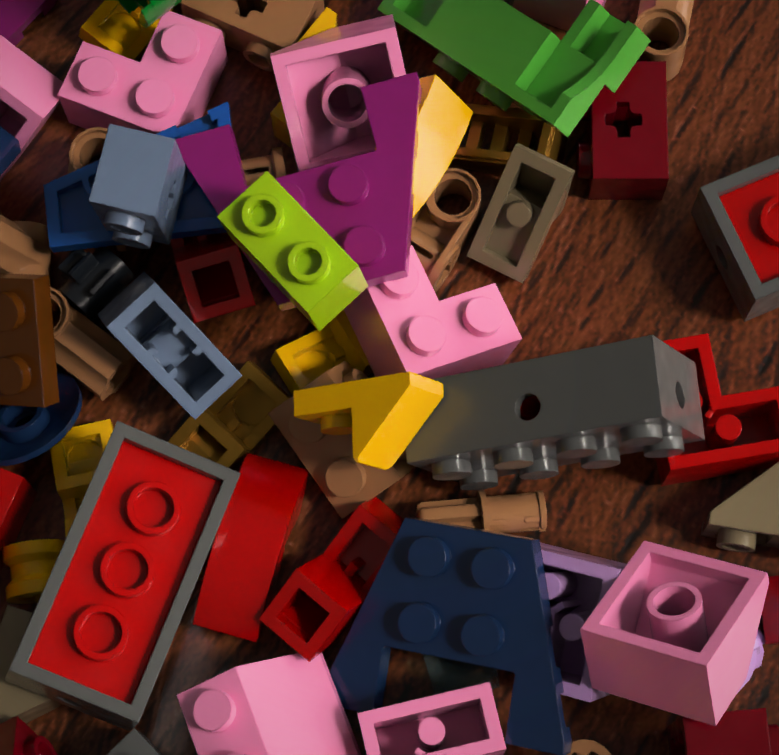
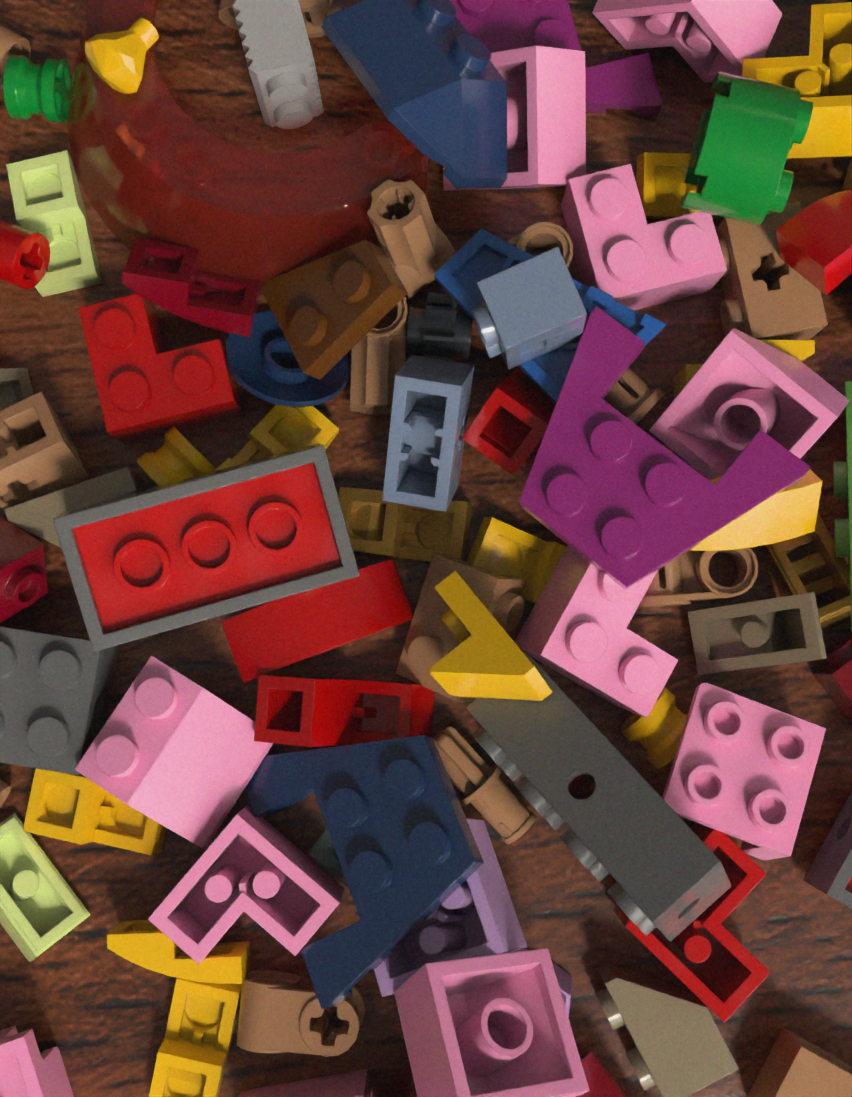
camera: 50 degrees right, 10 degrees up
(293, 250) = (567, 484): lime brick -> none
(542, 334) = (658, 732): none -> yellow wheel
(617, 289) = (744, 770): none -> bright pink bracket

